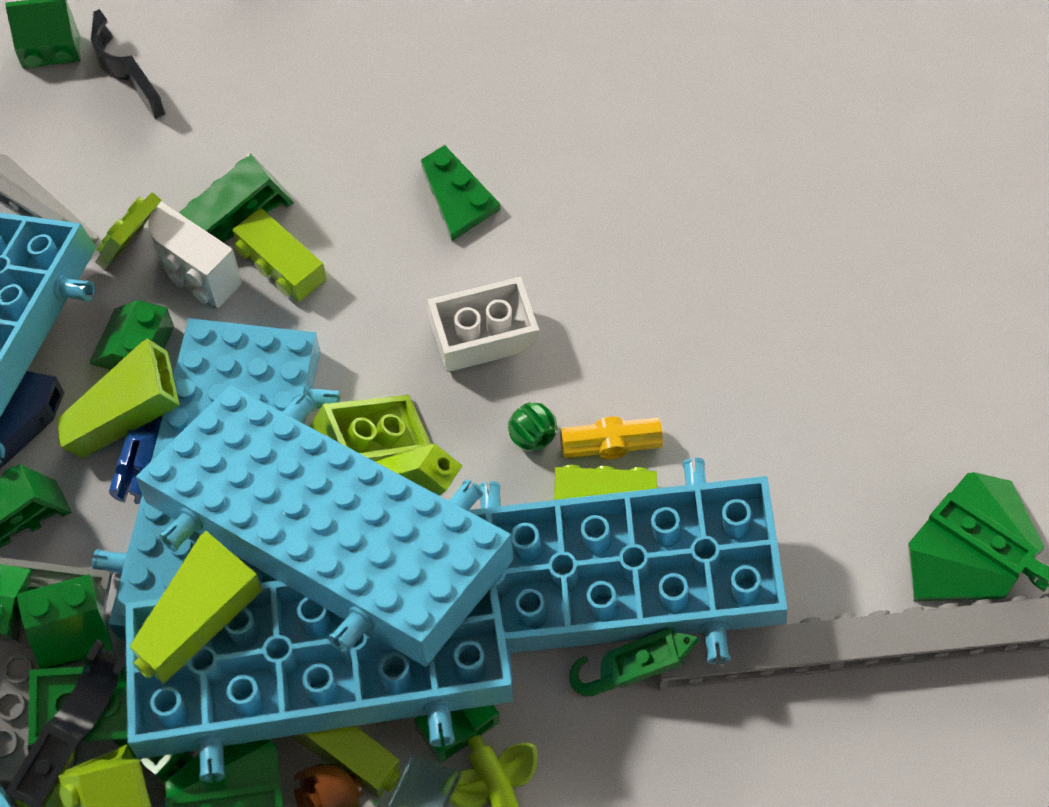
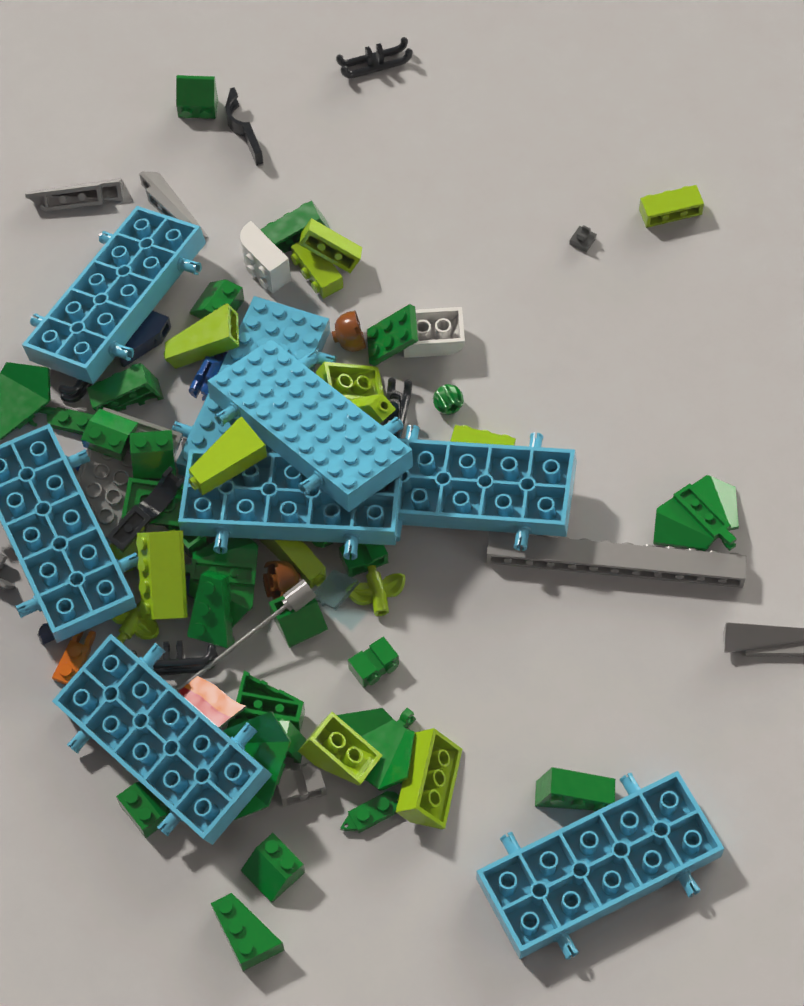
camera: 15 degrees right, 0 degrees up
(124, 230) = (226, 234): lime plate -> none
(294, 218) = (330, 245): none -> lime brick
(351, 348) = (349, 332): none -> dark orange cylinder
(422, 340) = (392, 335): none -> green plate
(455, 443) = (400, 403): none -> black piece
(458, 192) = (437, 247): green wing -> none
(611, 437) = (494, 415): yellow piece -> none
(635, 662) = (473, 541): green plate -> none
(670, 142) = (583, 238): none -> dark grey tile
(785, 73) = (671, 206): none -> lime brick

